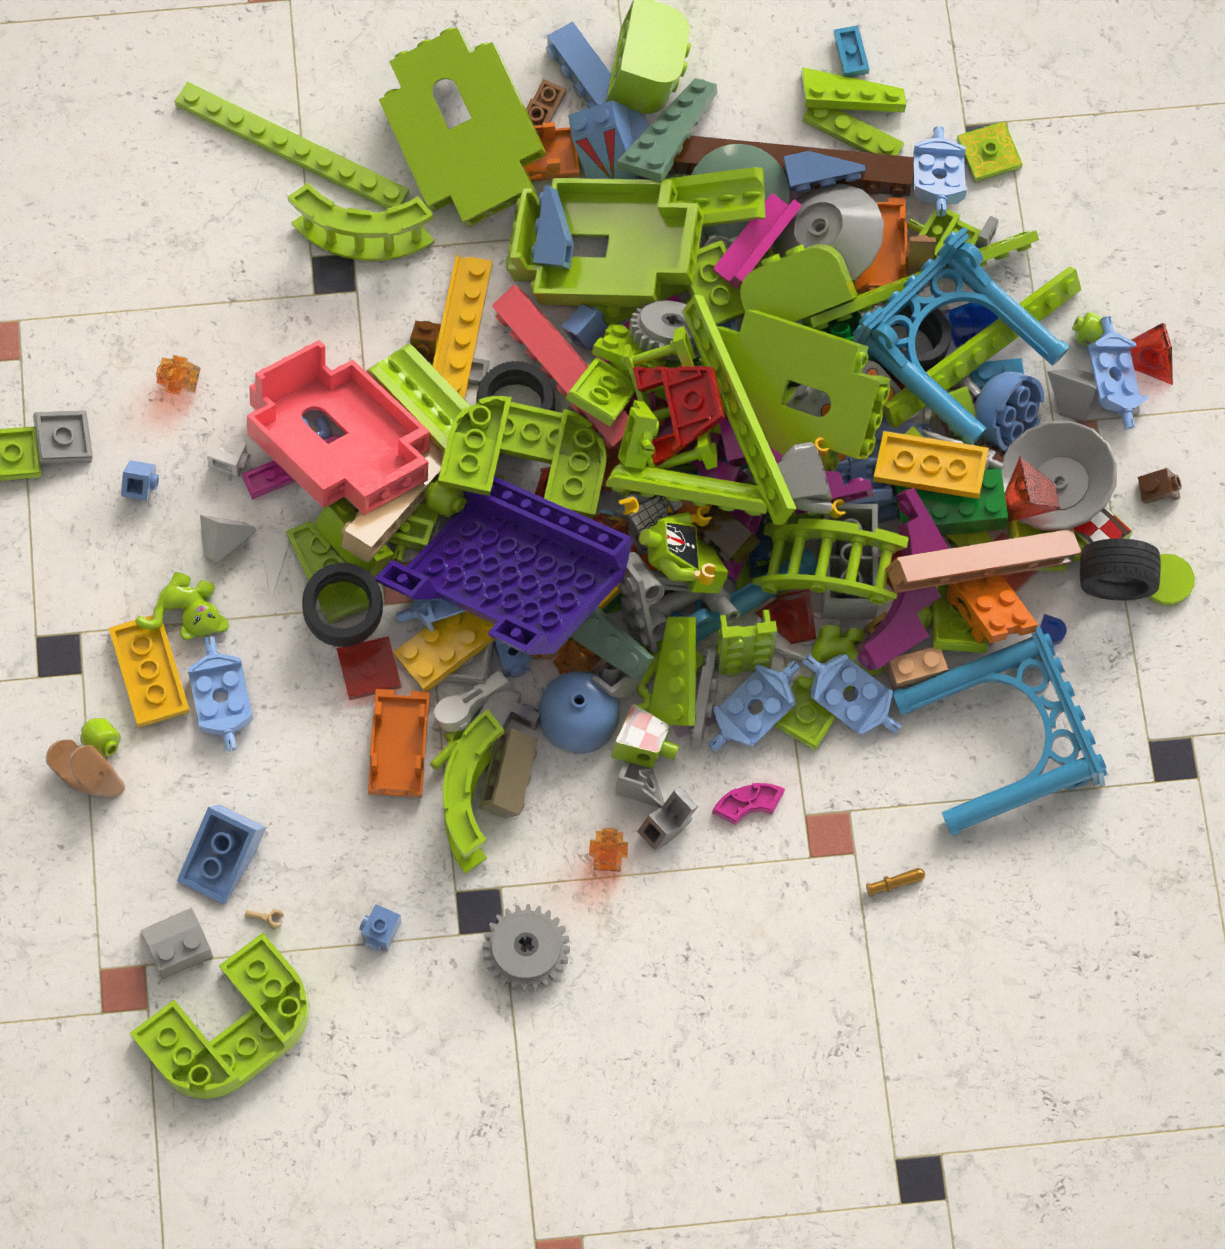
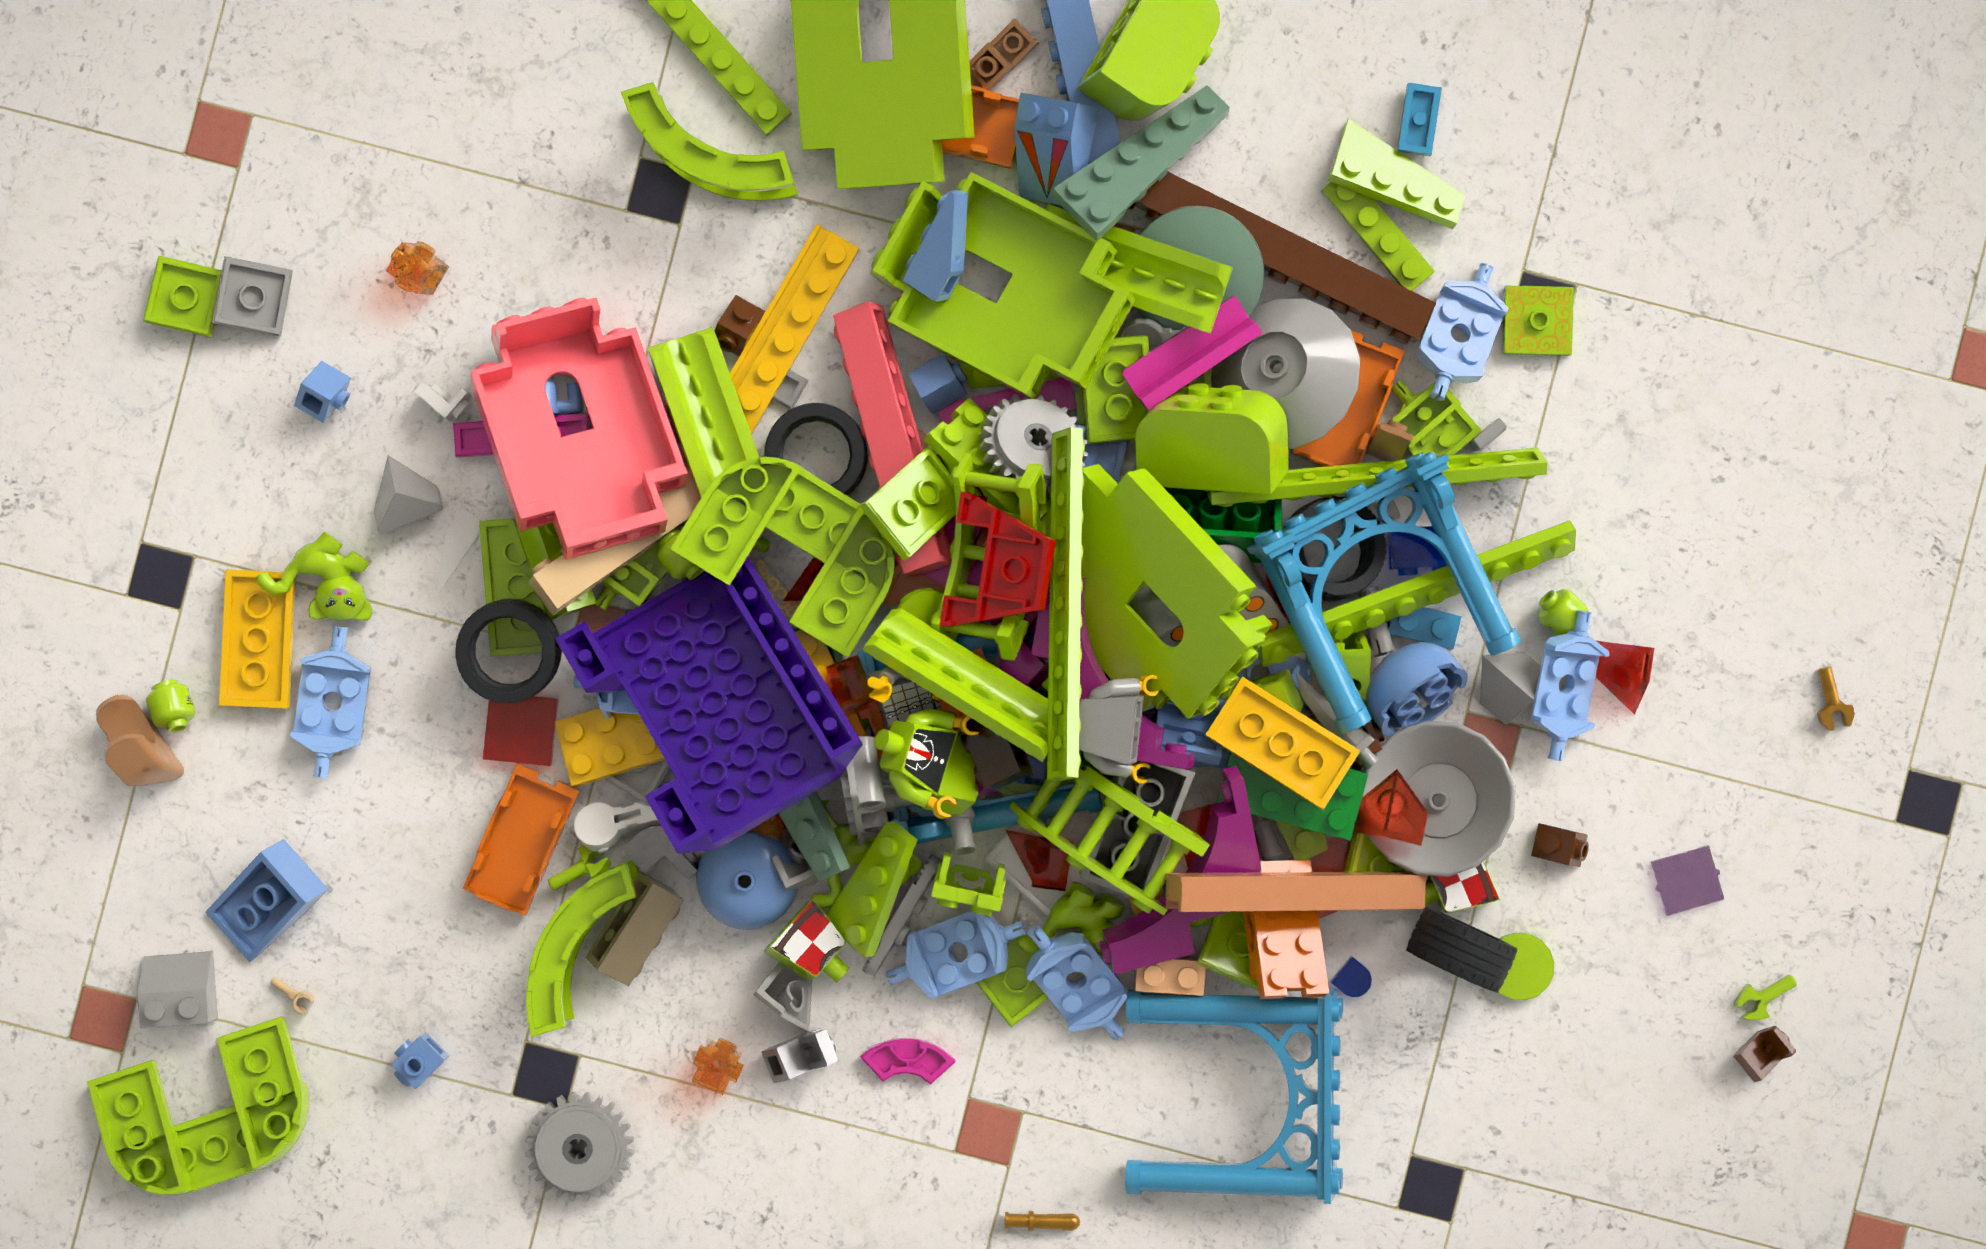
camera: 20 degrees right, 20 degrees up
(638, 436) = (931, 589): lime plate -> none
(814, 168) = (1299, 279): medium blue slope -> none

